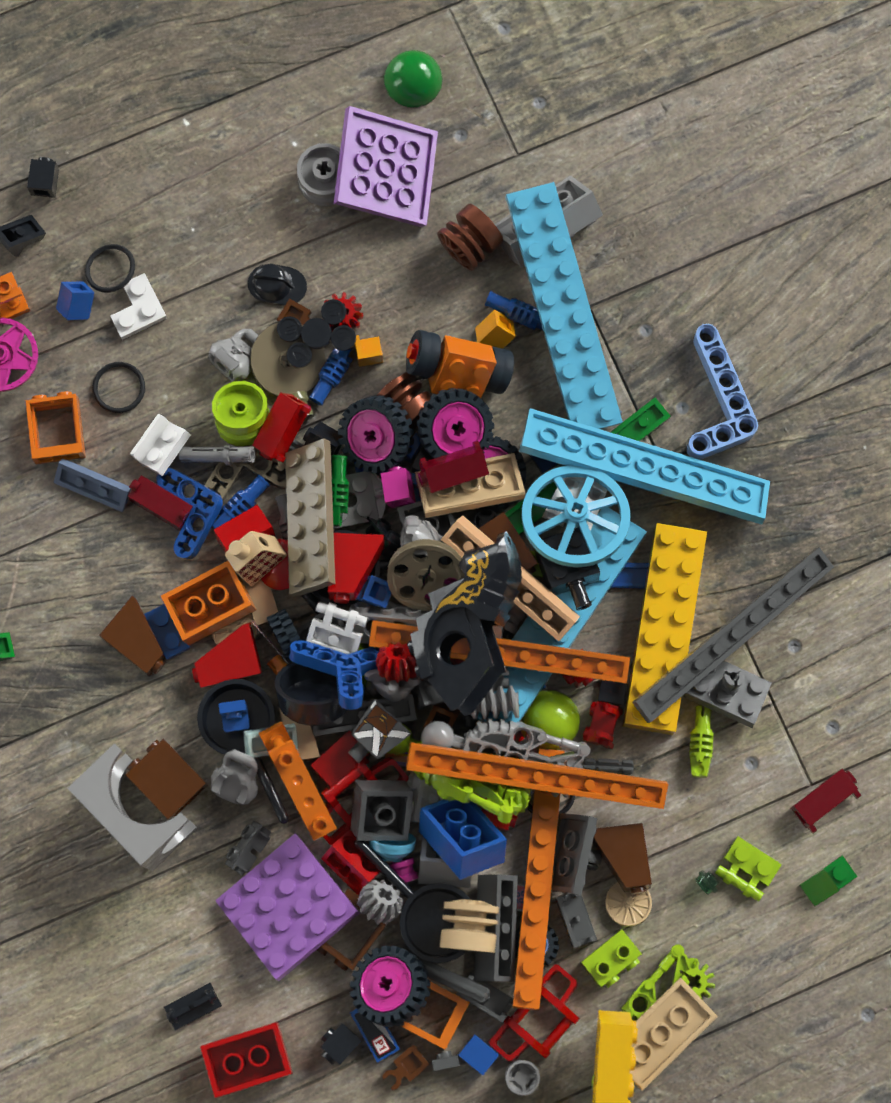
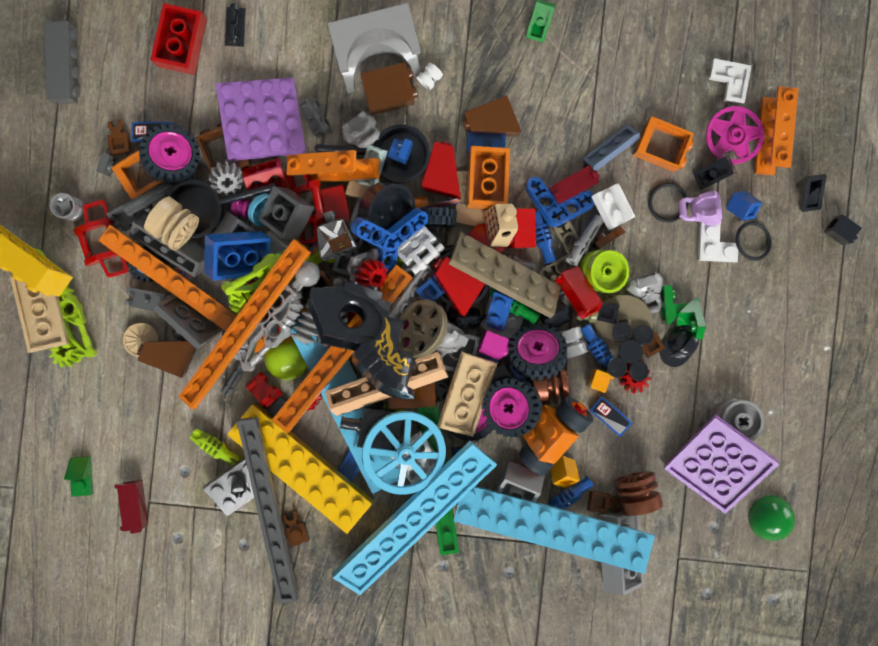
camera: 125 degrees right, 10 degrees up
(56, 353) = (715, 172): none -> black slope
(104, 342) = (704, 208): none -> lavender piece
(125, 739) = (429, 76): none -> white wheel
(203, 434) = (604, 239): none -> reddish brown plate
(236, 288) = (693, 316): none -> green slope
(243, 317) = (669, 310): none -> green slope
(285, 382) = (608, 312): none -> black tile
(335, 406) = (574, 345): none -> light grey wheel
(339, 1044) = (156, 105): black brick -> none
(355, 503) = (499, 311): none -> blue plate
(402, 315) = (611, 416): none -> slope
(453, 468) = (483, 389): dark red brick -> none
(478, 1054) = (98, 187): blue panel -> none
(504, 273) = (601, 502): none -> reddish brown plate
(535, 373) = (520, 482): none -> light grey slope
(611, 959) = (110, 307): lime brick -> none
(707, 882) = (123, 397): clear green plate -> none
(724, 396) = (434, 599): light blue beam -> none
(742, 594) = (296, 531): none -> reddish brown plate
(752, 862) = (120, 435): lime plate -> none

